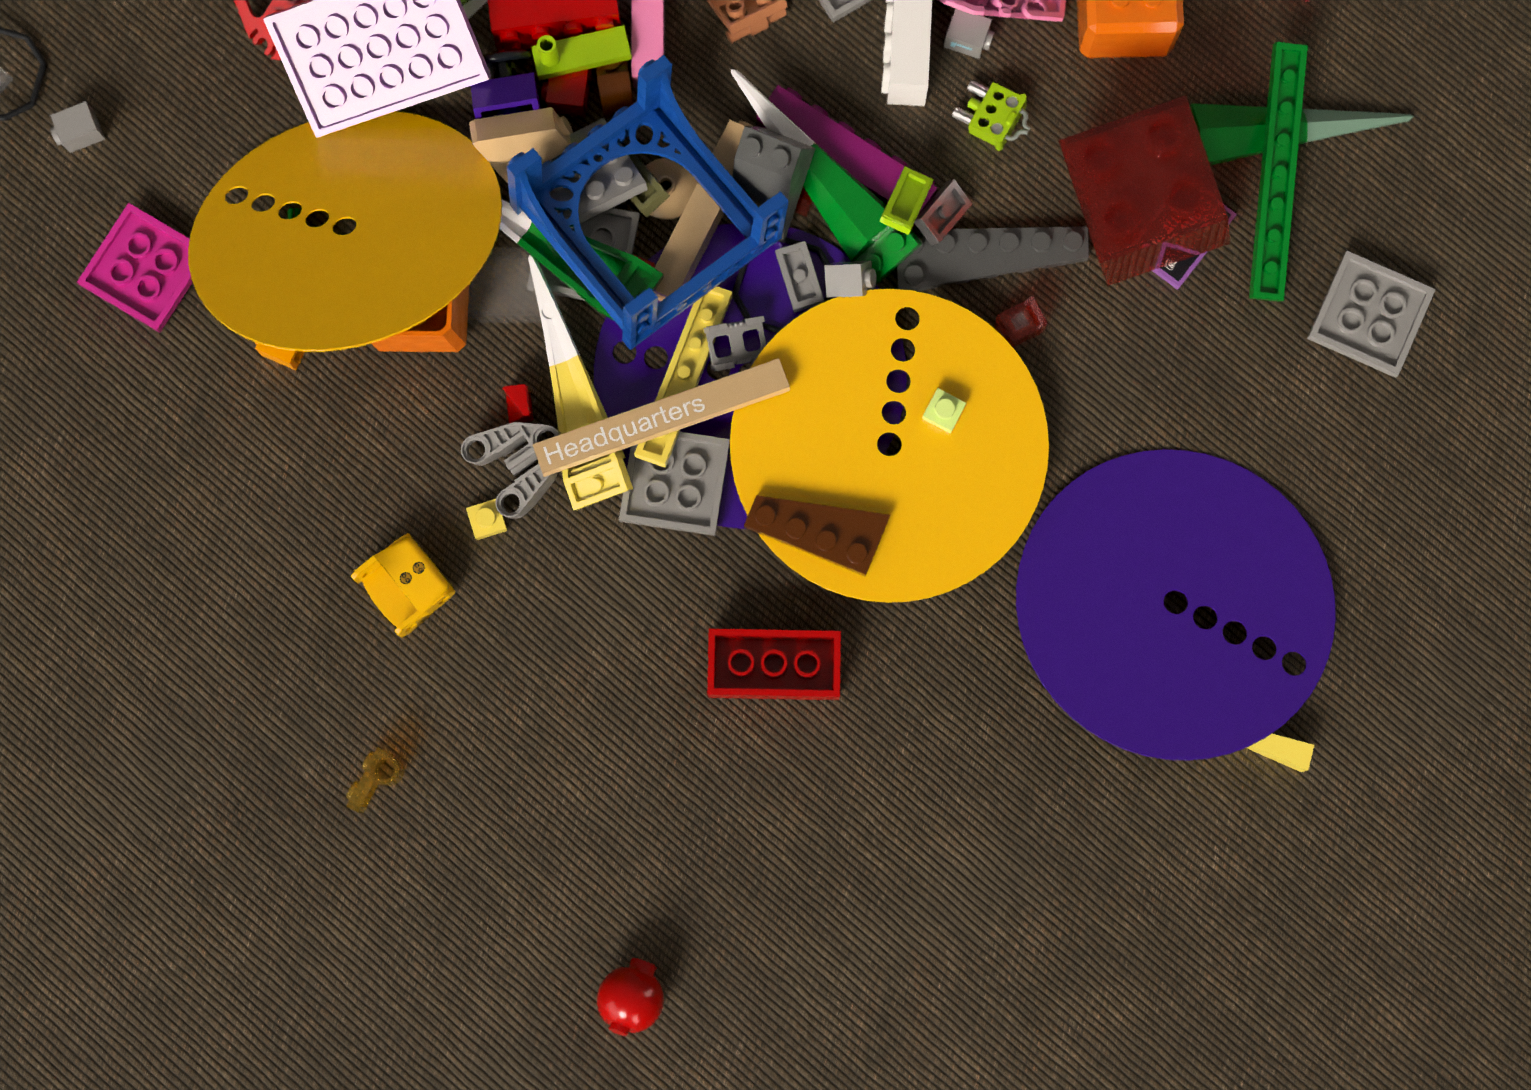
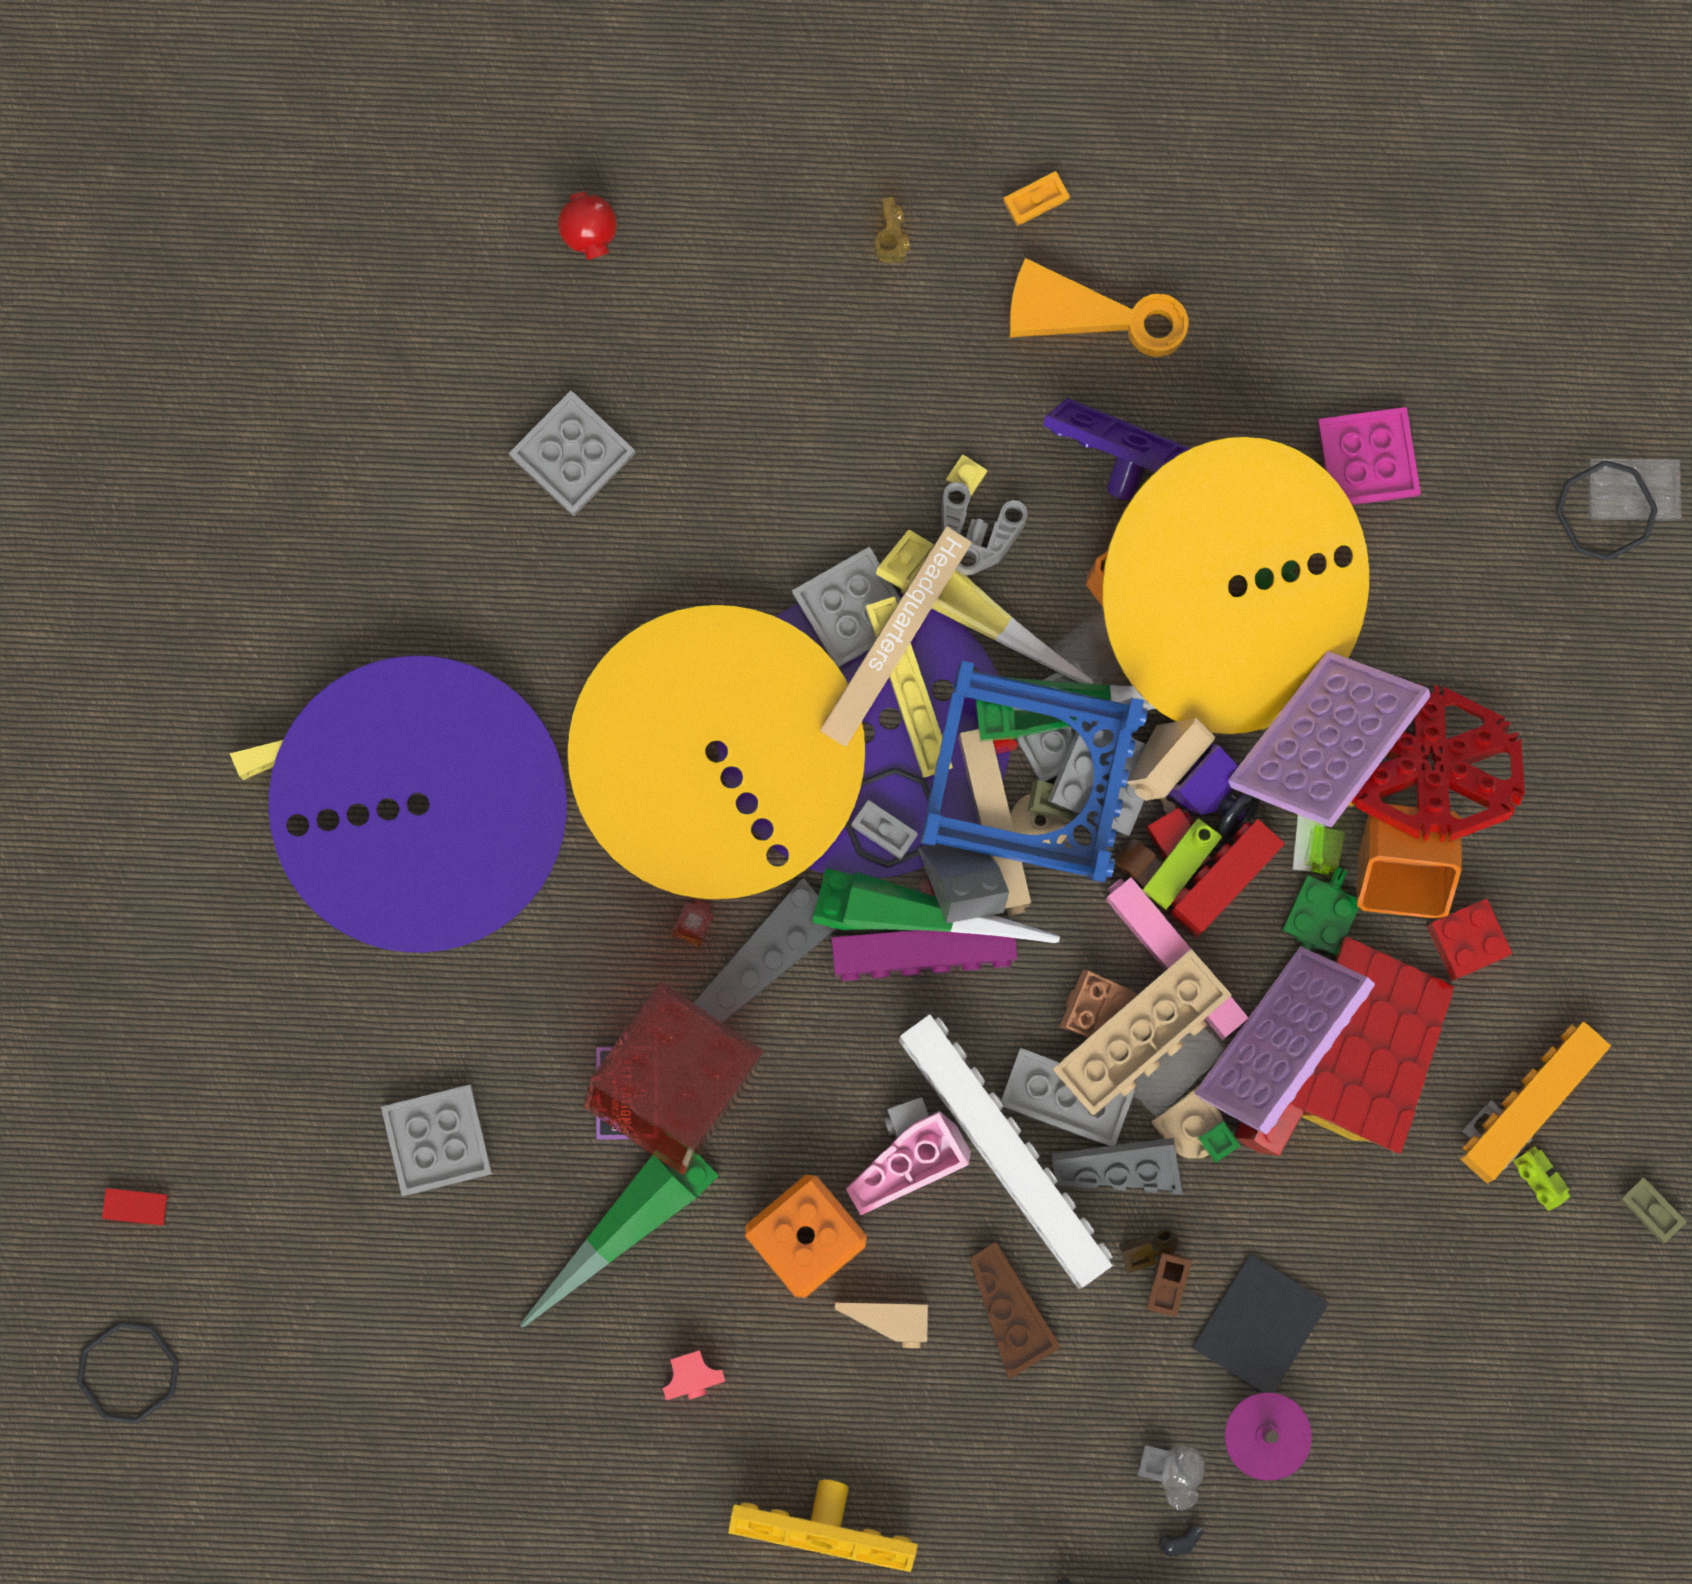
camera: 135 degrees right, 0 degrees up
(76, 127) = (1508, 518): light grey brick -> none
(226, 710) = (1036, 198): none -> light orange plate
(290, 606) = (1056, 305): none -> light orange piece
(331, 426) = (1131, 444): none -> dark purple plate
(404, 584) = (983, 383): yellow piece -> none
(518, 403) = (1011, 575): red slope -> none
(735, 333) = (896, 747): light grey piece -> none
(774, 664) = (673, 530): red brick -> none
(805, 805) = (572, 453): none -> light grey plate
(824, 531) = (705, 650): reddish brown wing -> none
(849, 278) = (845, 853): light grey brick -> none
(906, 200) = (847, 939): lime tile -> none
(942, 212) = (816, 960): flat silver plate -> none
(944, 410) = (695, 805): yellowish green plate -> none
(1001, 122) = (828, 1071): lime piece -> none
(1278, 171) = (589, 1191): green plate -> none

